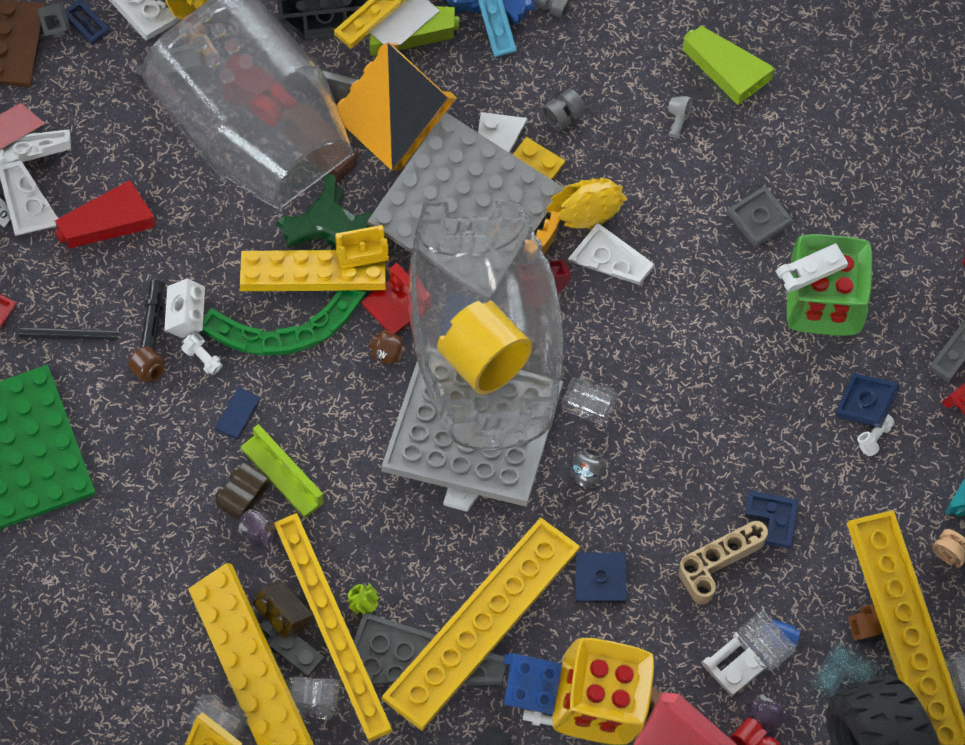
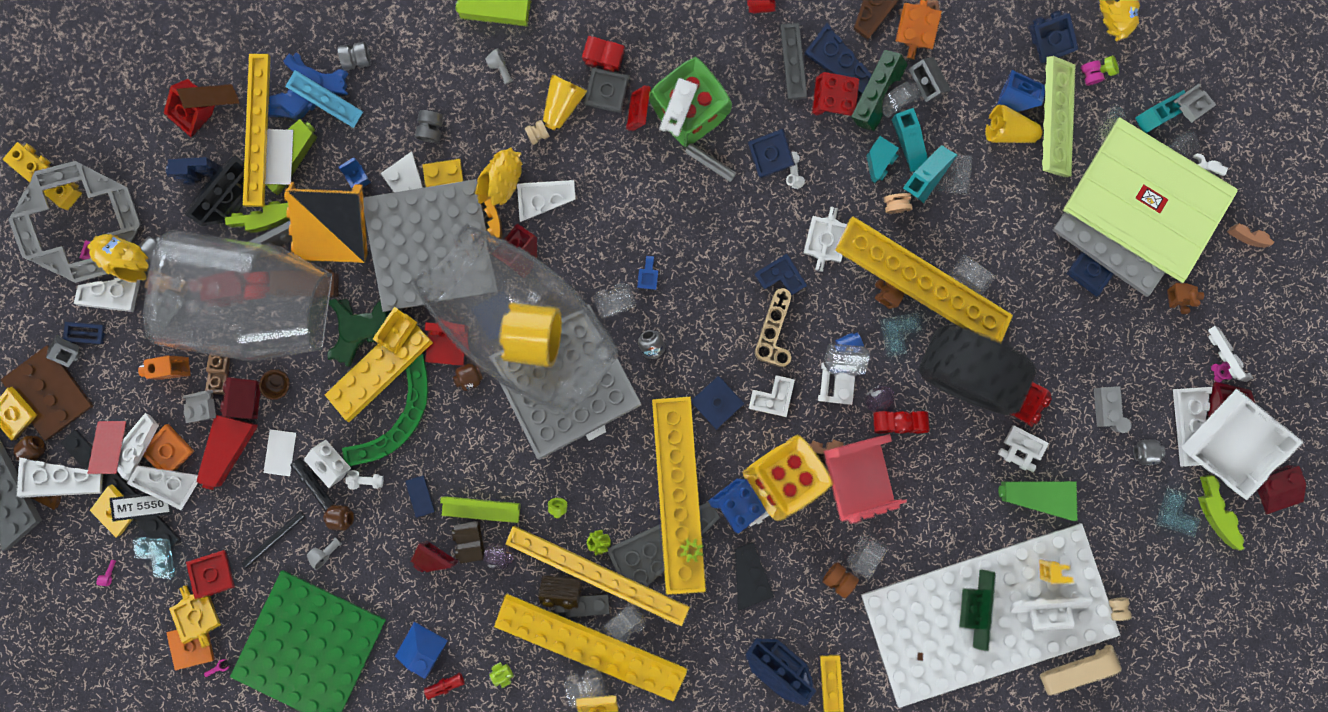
camera: 35 degrees left, 20 degrees up
(57, 175) = (167, 449): none -> orange plate
(74, 595) = (444, 686): none -> red pin
(92, 378) = (315, 555): none -> light grey bar
(101, 548) = (420, 650): none -> blue slope
(122, 163) = (199, 406): none -> light grey plate
(127, 106) = (165, 367): none -> orange torso
(150, 266) = (279, 452): none -> white sticker
(151, 636) = (501, 675): none -> lime gear
(167, 187) = (241, 398): none -> dark red slope
(168, 151) = (217, 373): none -> medium nougat slope
(192, 472) = (431, 558): none -> dark red slope
(206, 198) = (274, 384): none -> reddish brown hair
(332, 59) = (272, 216): none -> lime slope
(355, 535) = (557, 507): none -> lime tile
(443, 668) = (696, 552): none -> lime gear
(460, 87) = (354, 173): none -> blue bracket
(643, 407) = (648, 277): none -> blue plate
(659, 626) = (776, 402): none -> white plate
(660, 197) = (536, 132): none -> tan wheel
(707, 188) = (561, 101): none -> yellow cone
(774, 253) = (638, 108): none -> red plate
(787, 183) = (603, 54): none -> red brick
(800, 360) = (710, 162): none -> light grey axle
(836, 515) = (823, 238): none -> white plate

